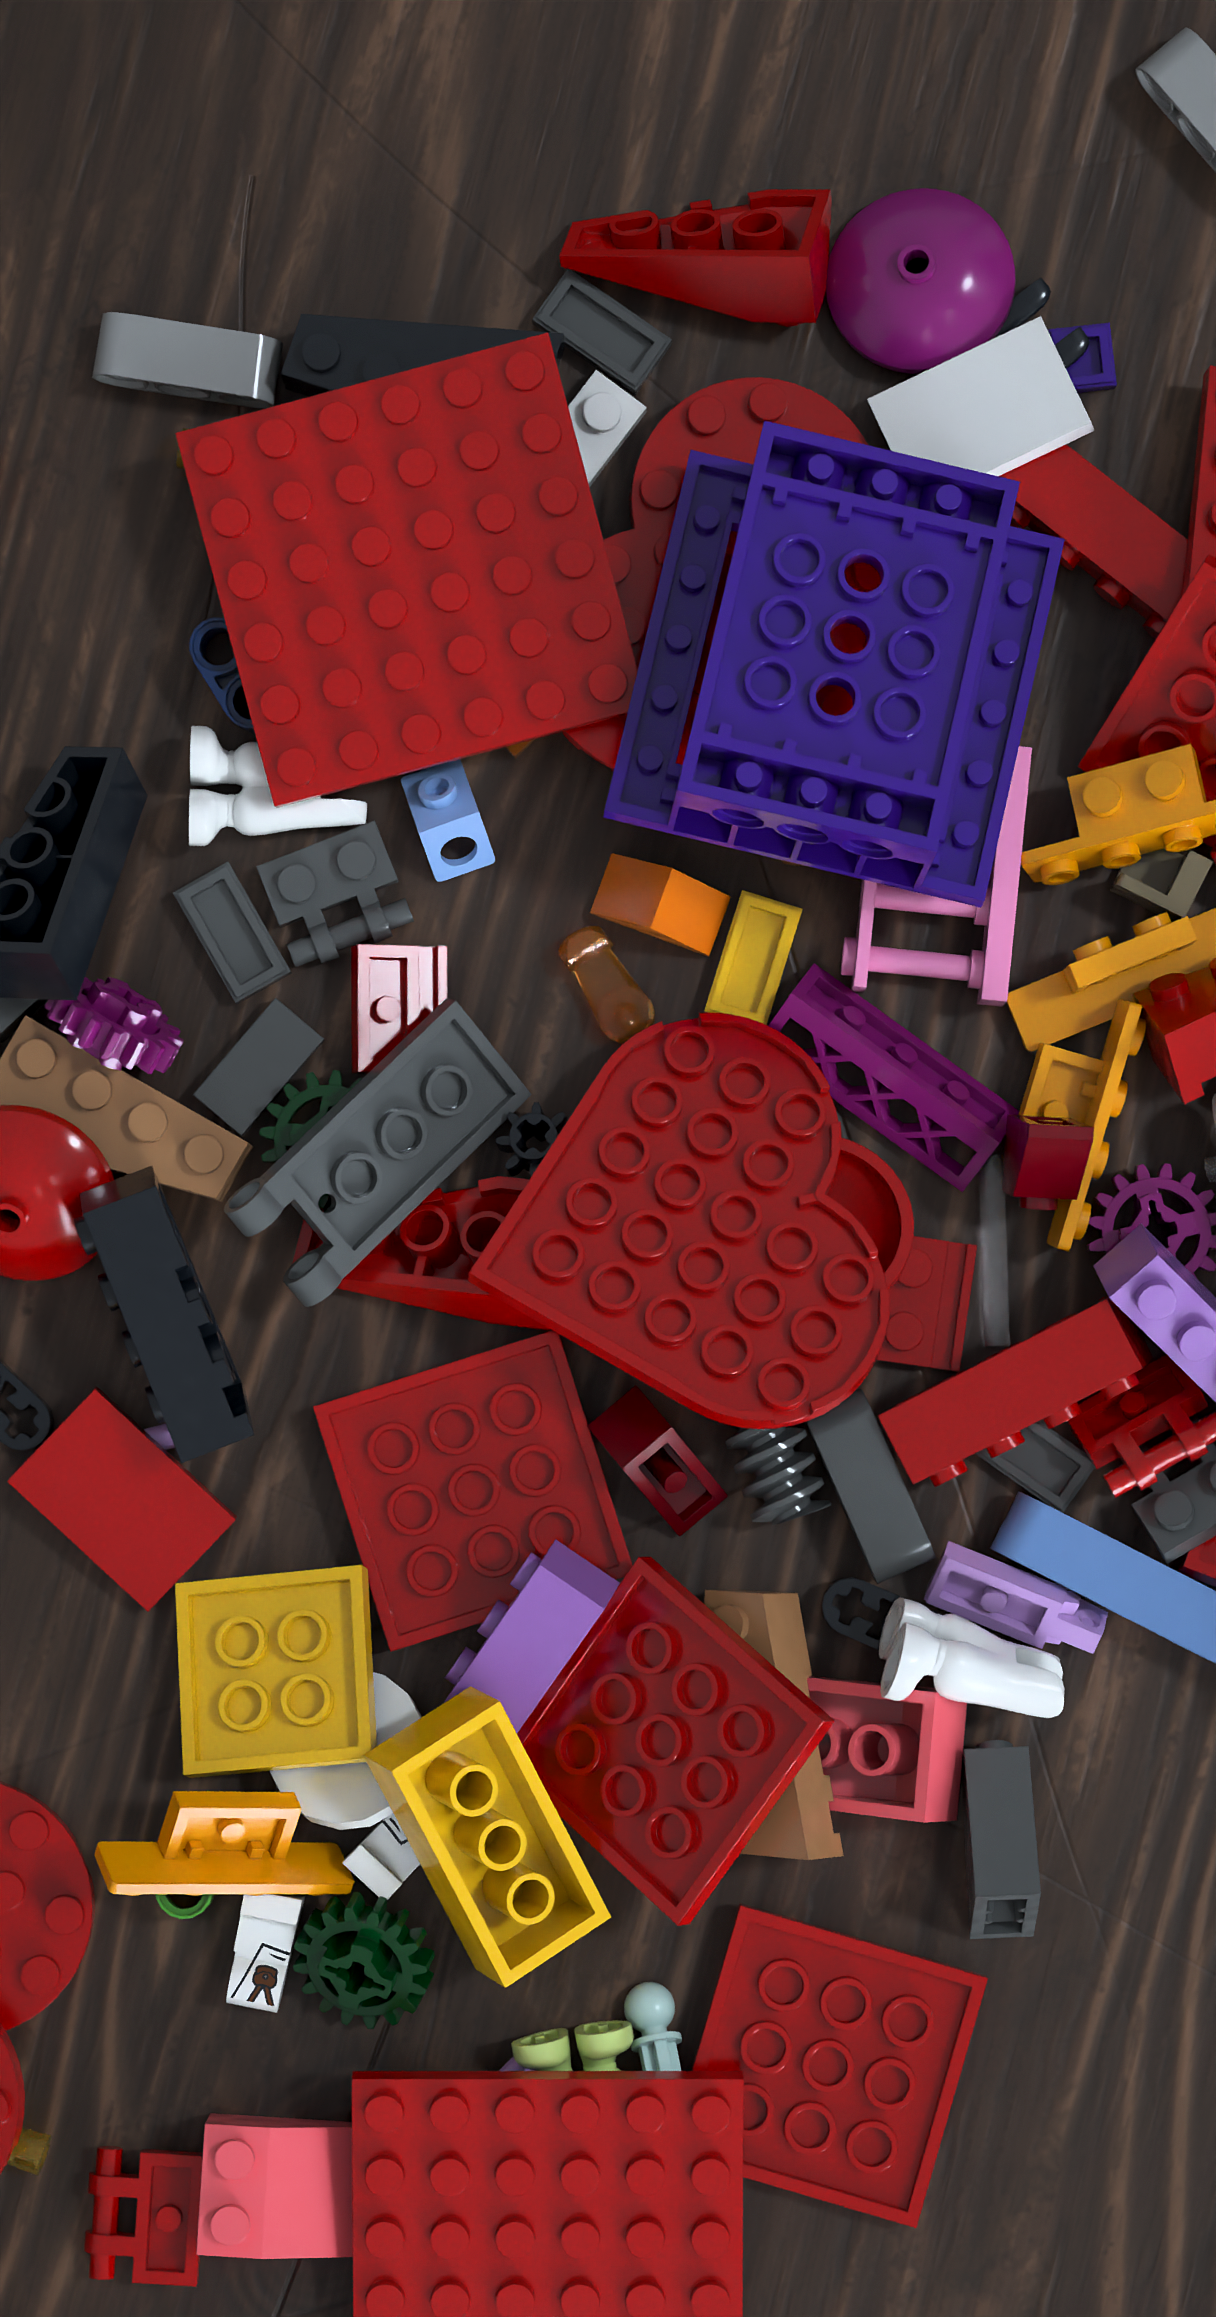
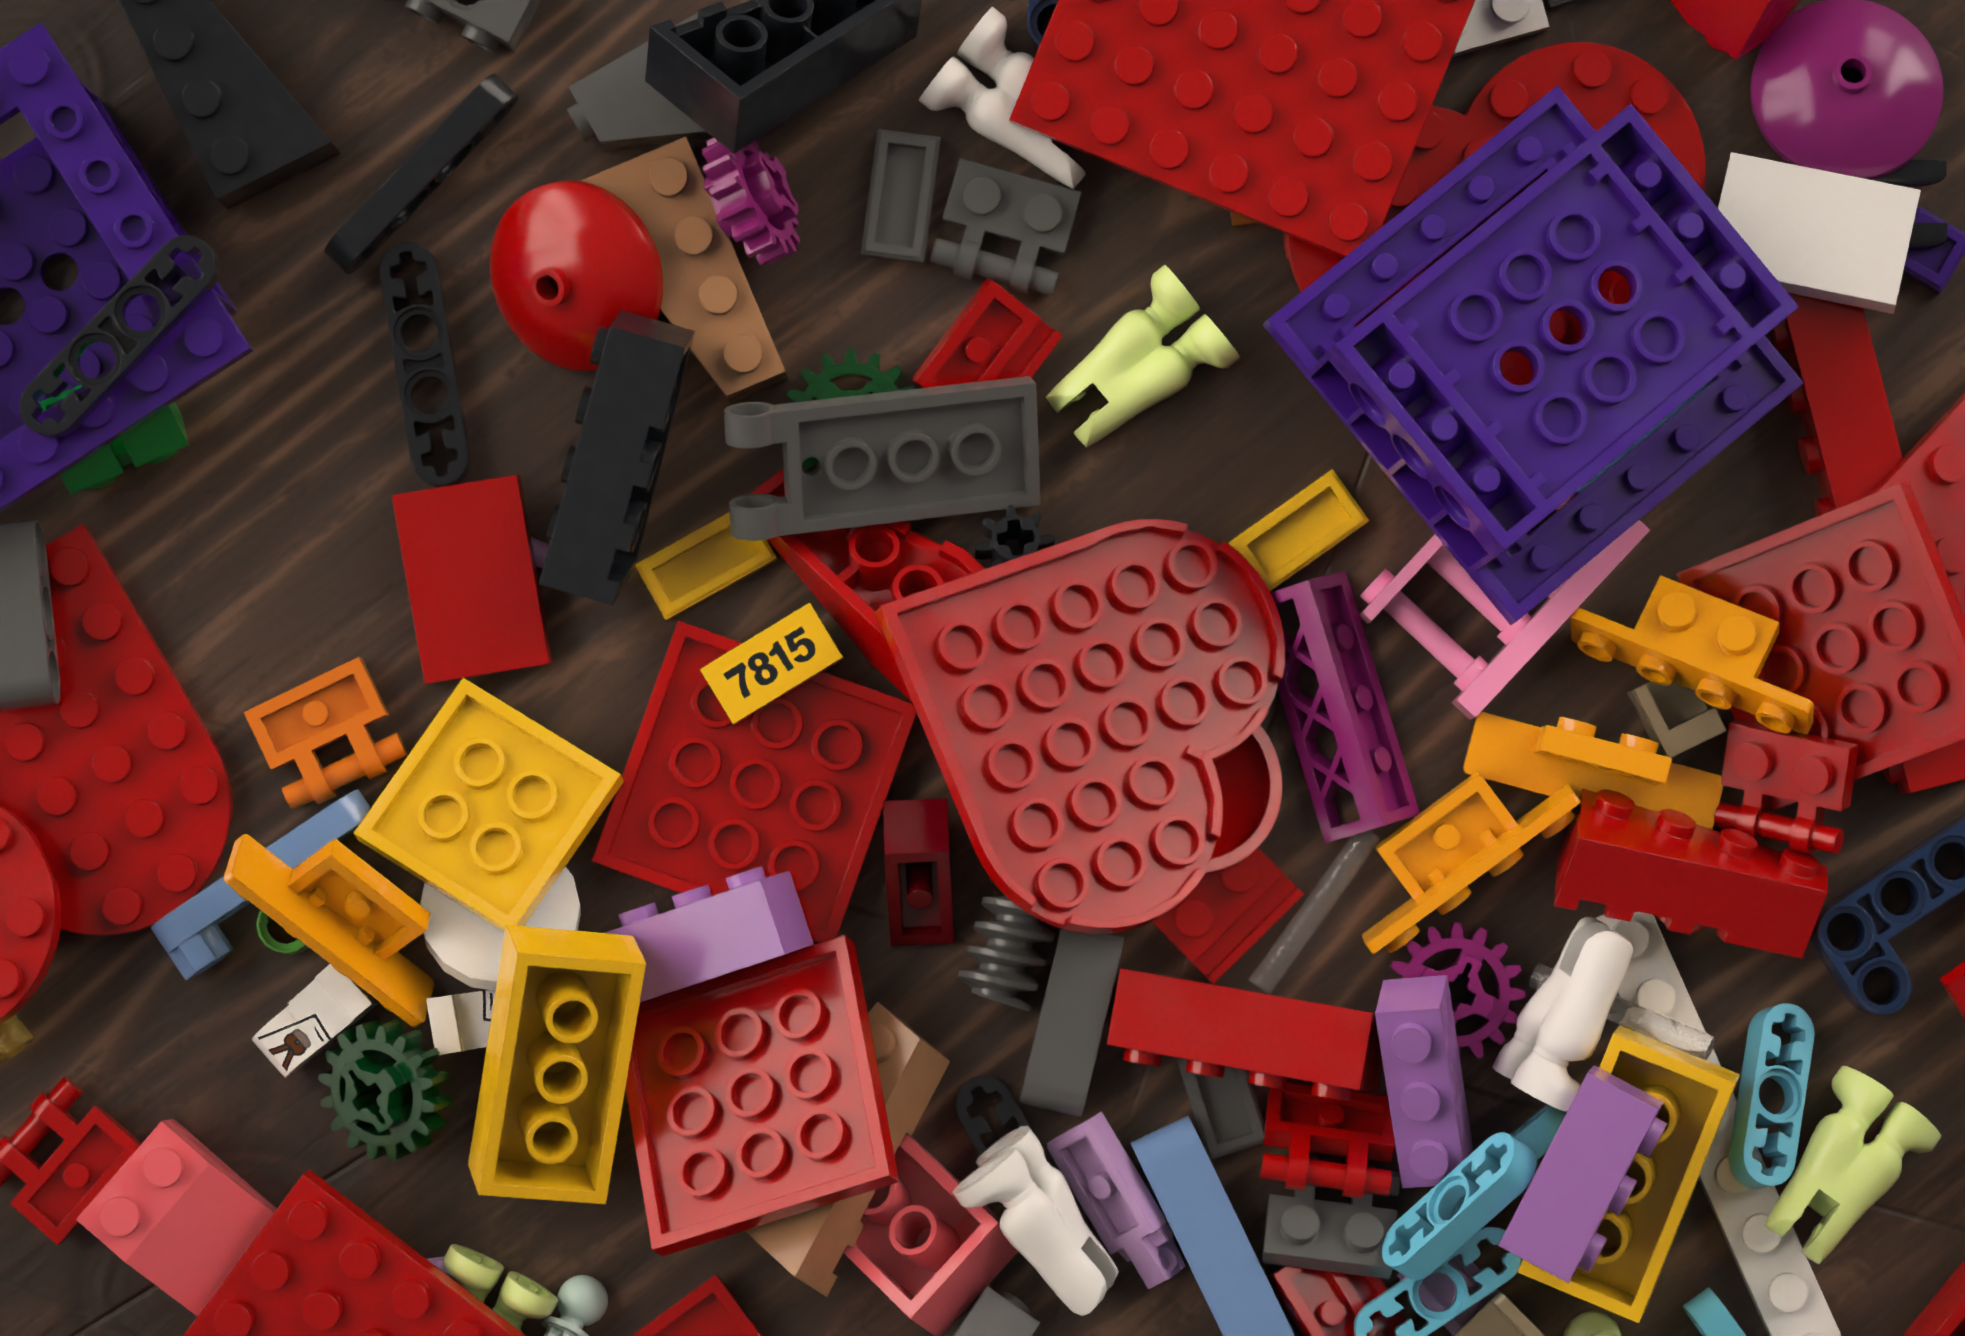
camera: 45 degrees right, 0 degrees up
(80, 1703) = (316, 716): none -> orange plate
(112, 1952) = (192, 930): none -> medium blue beam
(259, 1067) = (840, 319): dark grey tile -> none
(297, 1349) = (701, 566): none -> yellow tile
(414, 1384) = (771, 663): none -> yellow tile
(447, 810) = (1142, 226): light blue bracket -> none
(523, 927) = (1133, 364): none -> yellowish green piece
(610, 990) = (1166, 469): clear orange piece -> none
(660, 903) = (1259, 431): orange slope -> none
(1045, 1159) = (1409, 865): dark red slope -> none

